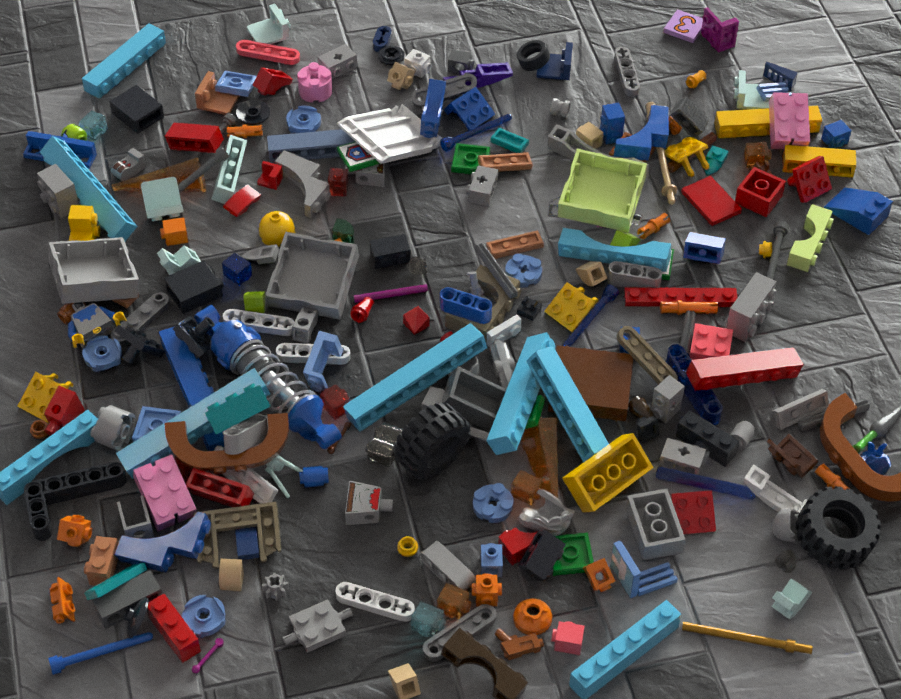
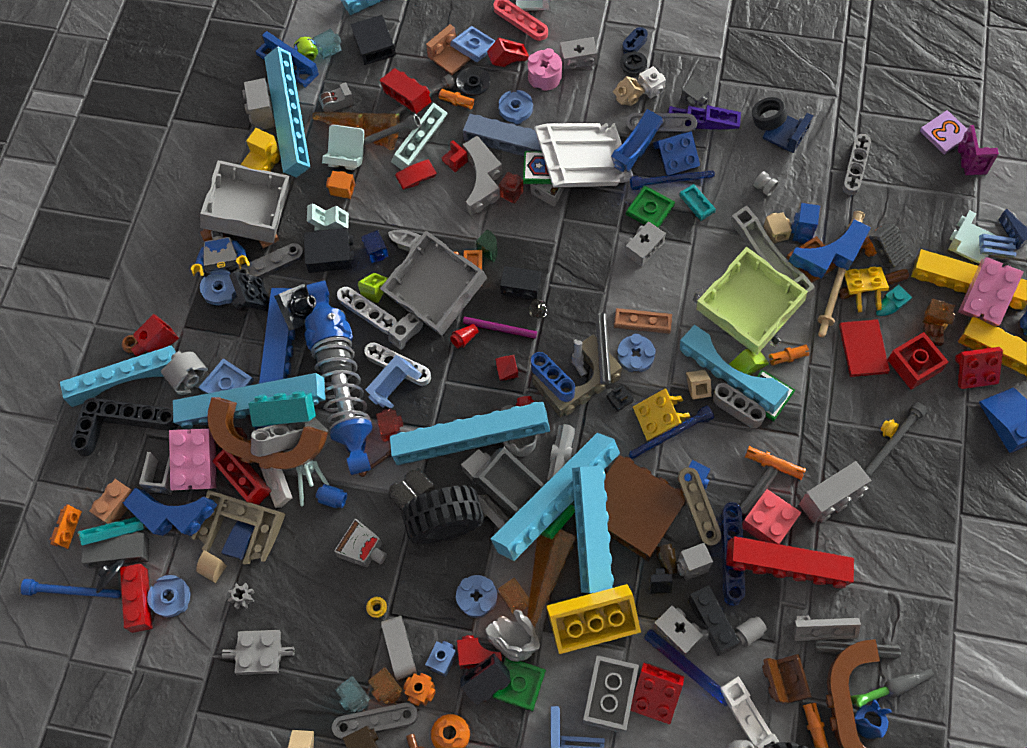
camera: 30 degrees right, 15 degrees up
(40, 394) = (148, 305): yellow plate -> none
(74, 530) = (105, 461): orange brick -> none
(218, 643) = (169, 628): magenta hinge -> none
(273, 227) = (432, 216): yellow cylinder -> none
(376, 598) = (321, 649): white beam -> none
(505, 330) = (583, 414): white plate -> none
(506, 162) = (680, 225): nougat tile -> none
(602, 567) = (525, 729): orange brick -> none
(653, 296) = (778, 447): red plate -> none
(693, 80) = (919, 201): light orange pin -> none
(704, 248) = (825, 403): blue brick -> none
(804, 252) = (926, 449): yellowish green arch -> none

